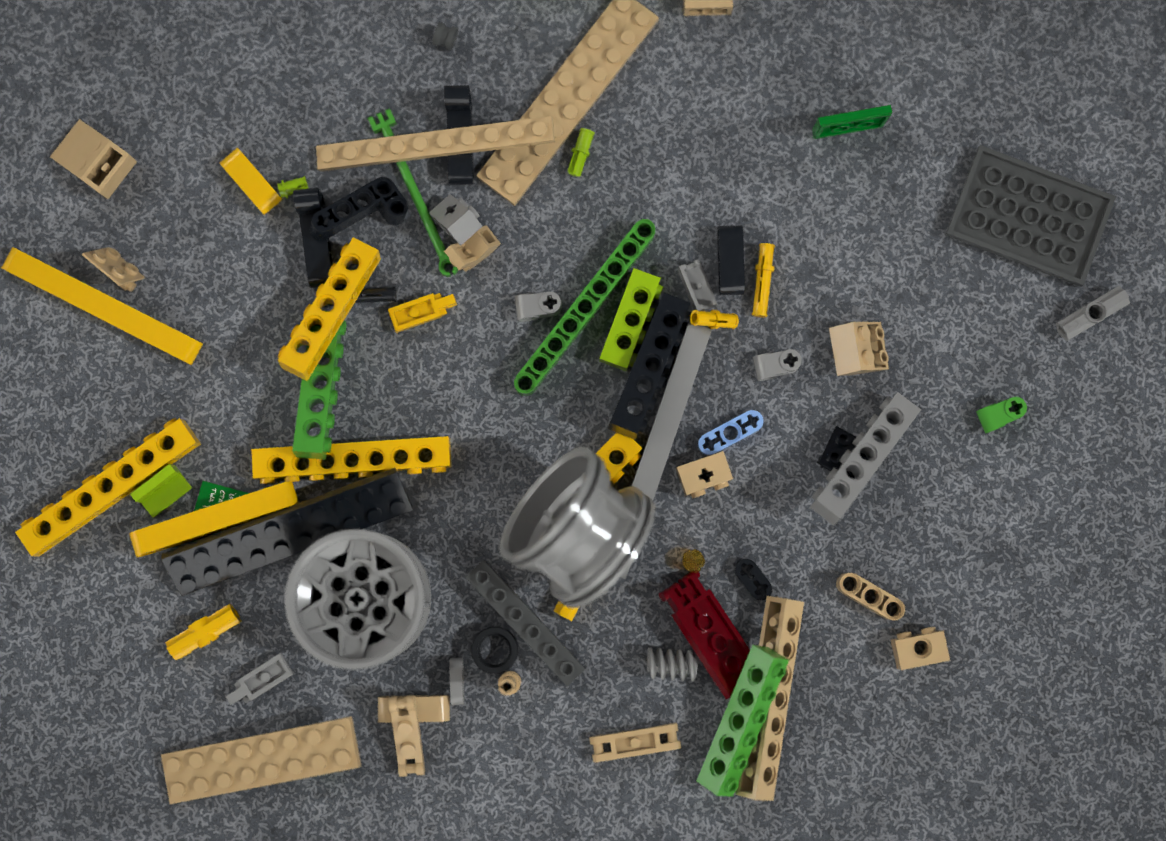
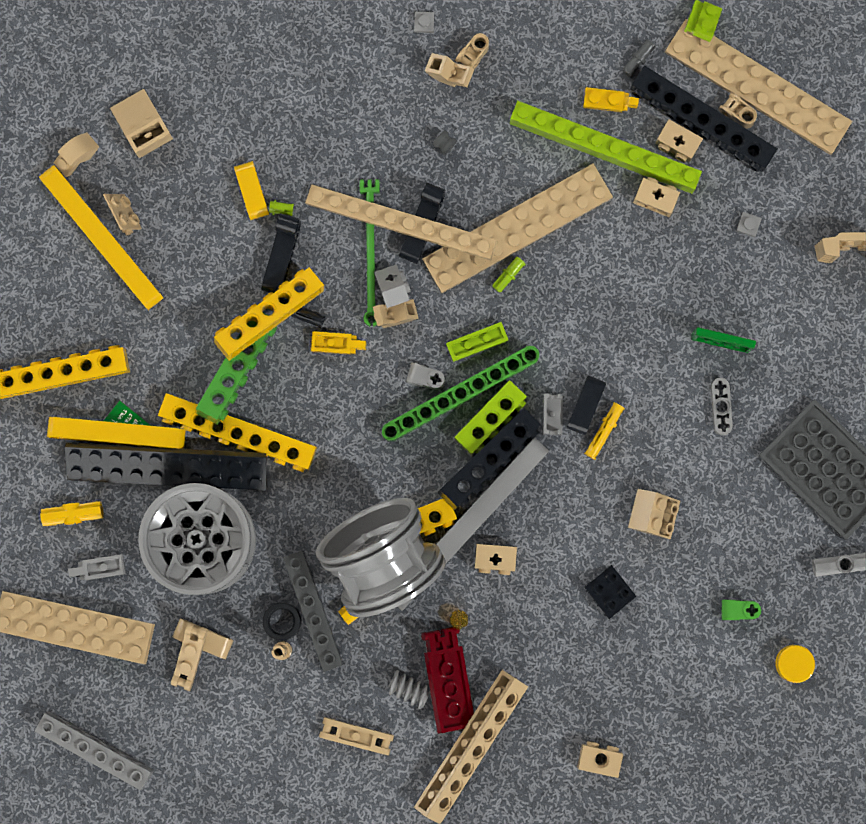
camera: 25 degrees right, 0 degrees up
(30, 221) = (75, 152): none -> tan brick
(162, 490) = (86, 394): lime panel -> none
(357, 212) = (319, 248): black beam -> none
(457, 681) = (243, 632): light grey beam -> none
(578, 242) = (477, 342): none -> lime plate
(714, 319) = (553, 445): yellow pin -> none
(742, 720) = (442, 754): bright green brick -> none
(749, 429) = (534, 528): light blue beam -> none
(757, 575) = (493, 655): black beam -> none
(772, 364) = (582, 498): light grey piece -> none
(833, 507) = (664, 576): light grey brick -> none
(882, 597) = (584, 713): tan beam -> none
(894, 210) = (726, 391): none -> light grey beam
(1087, 447) = (795, 663): none -> yellow head

